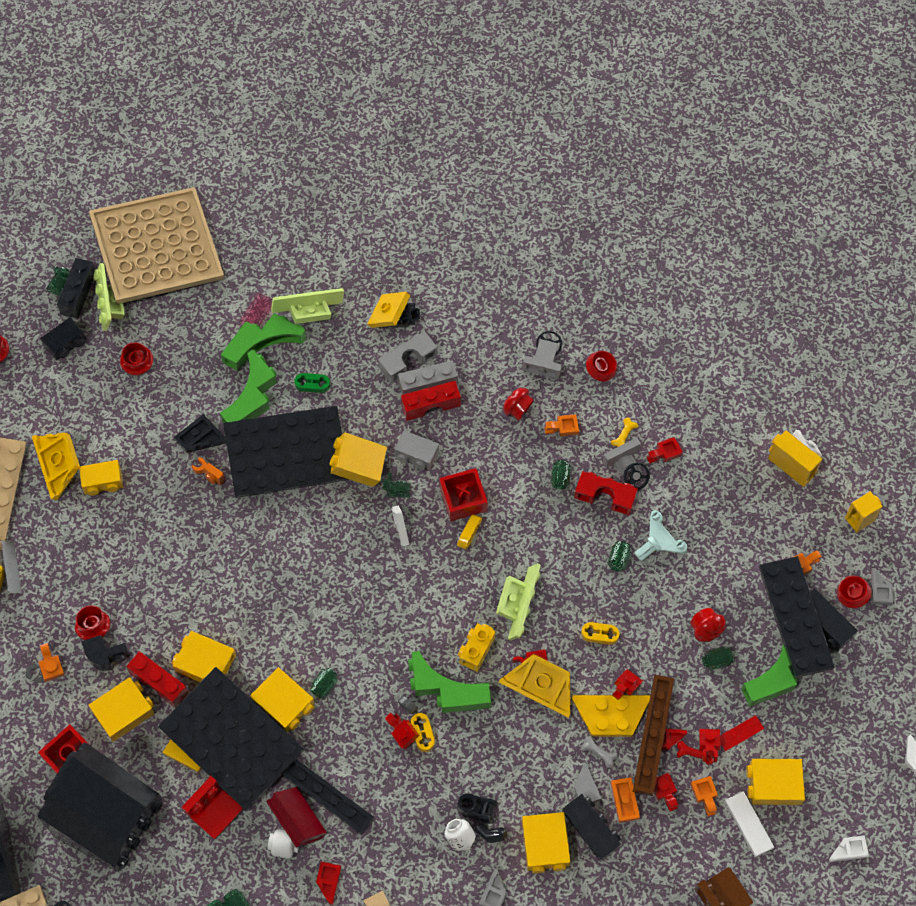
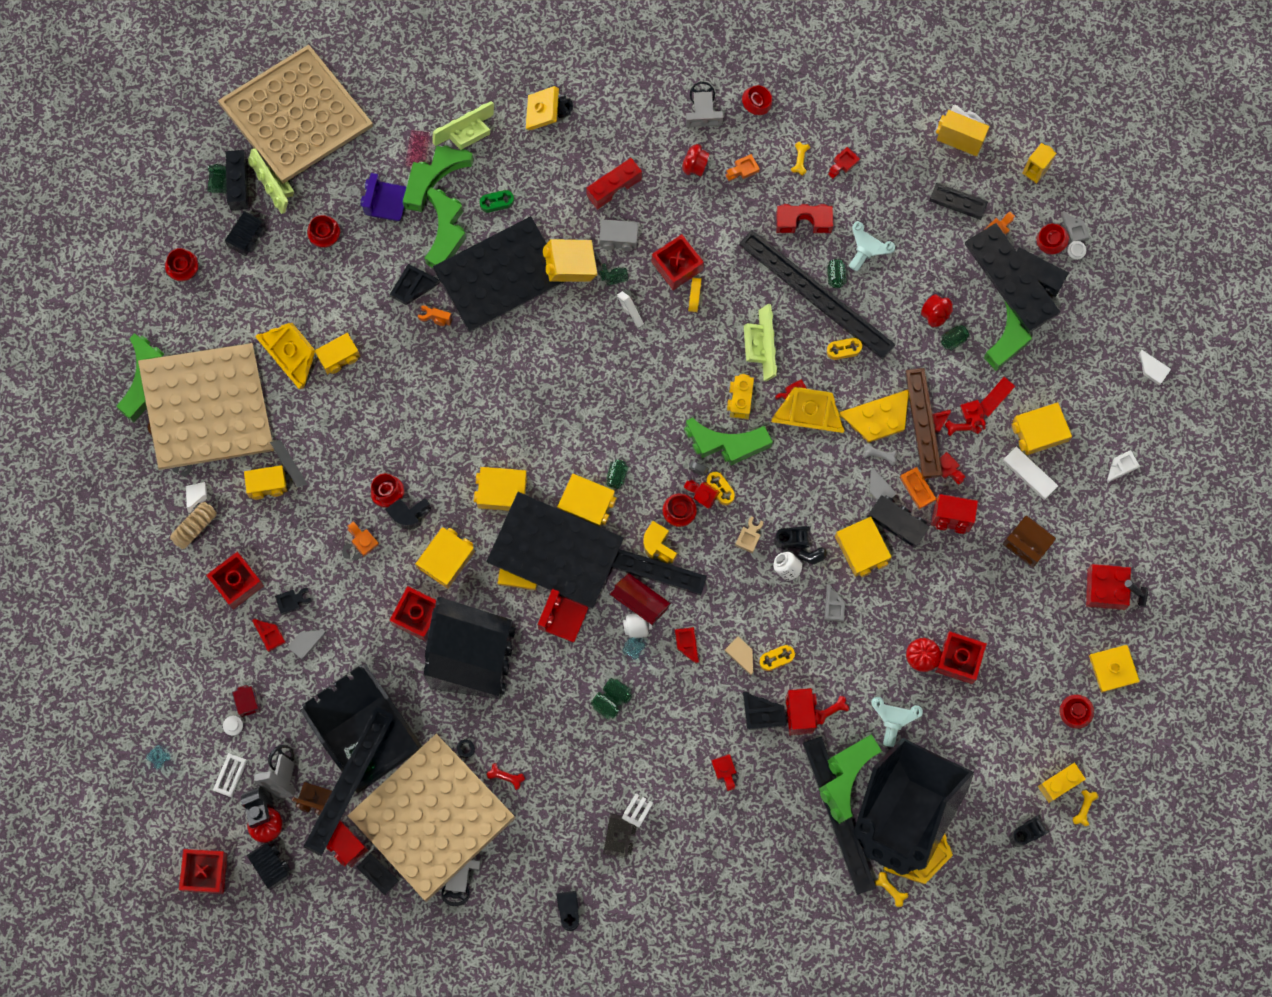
camera: 20 degrees left, 10 degrees up
(156, 677) = (473, 521): red arch -> none
(203, 346) = (383, 199): none -> dark purple bracket
(277, 866) = (629, 644): none -> clear light blue plate
(333, 763) = (653, 543): none -> yellow brick
(372, 740) = (679, 510): none -> red piece
(419, 347) = (583, 135): light grey arch -> none
(427, 377) = (602, 163): light grey arch -> none
(432, 792) = (748, 537): none -> tan plate
(560, 474) = (757, 214): clear green brick -> none
(593, 572) = (817, 294): none -> black plate
(626, 464) = (813, 186): light grey piece -> none
(626, 683) = (884, 385): red plate -> none
(651, 839) = (954, 513): none -> red brick
(705, 792) = (983, 457): orange plate -> none
(769, 524) = (958, 201): none -> black plate
(875, 611) = (1076, 250): none -> white plate

